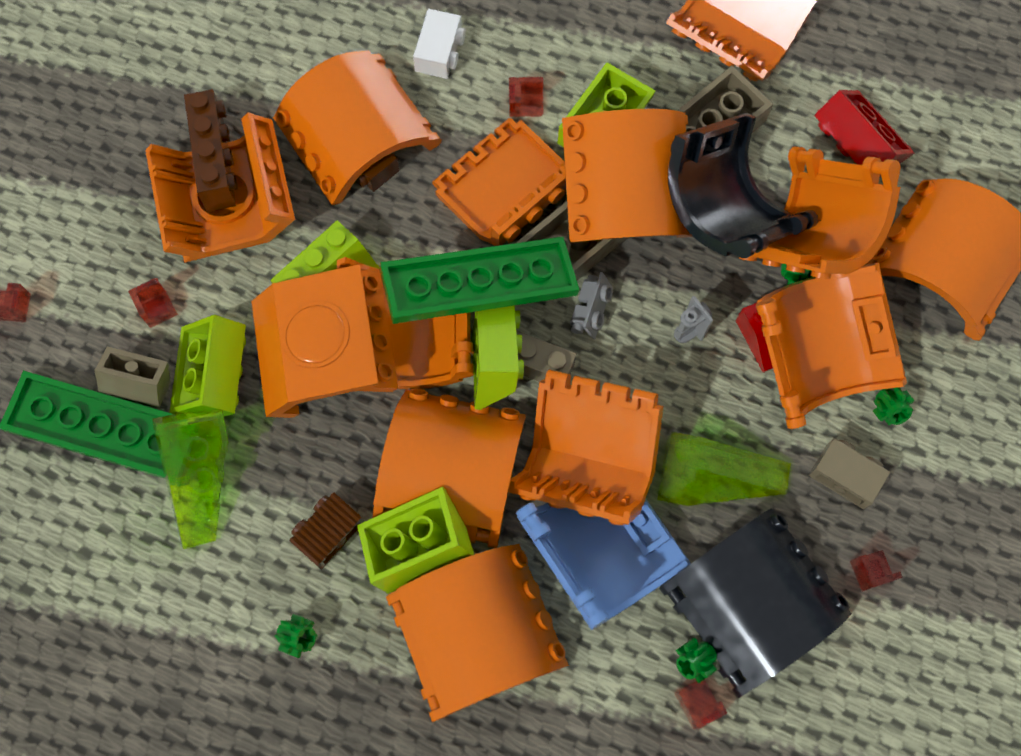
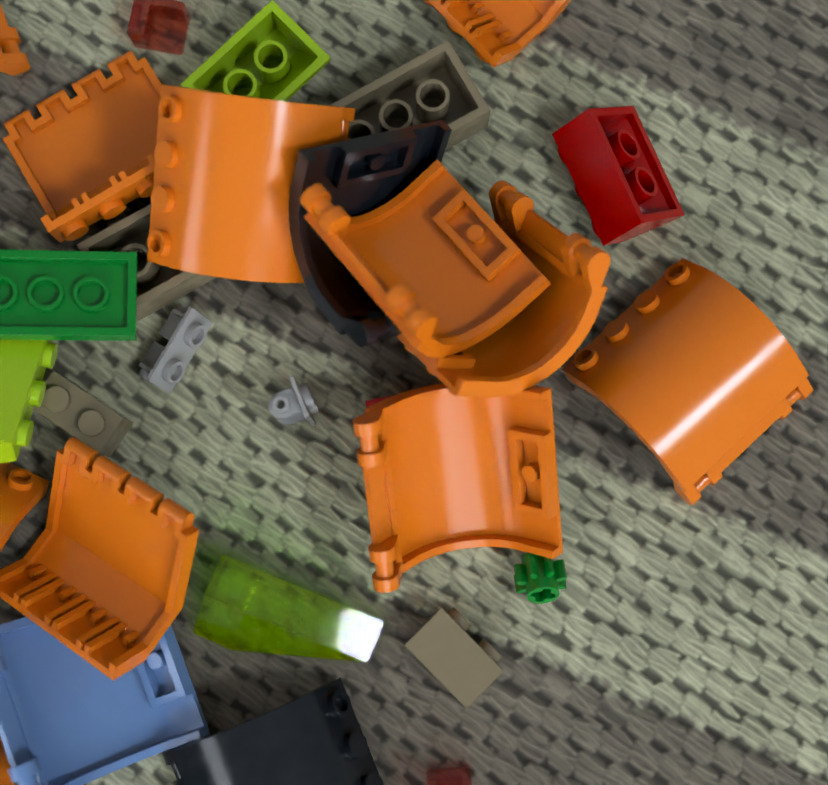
camera: 15 degrees right, 10 degrees up
(772, 195) = (431, 261): none -> orange hinge

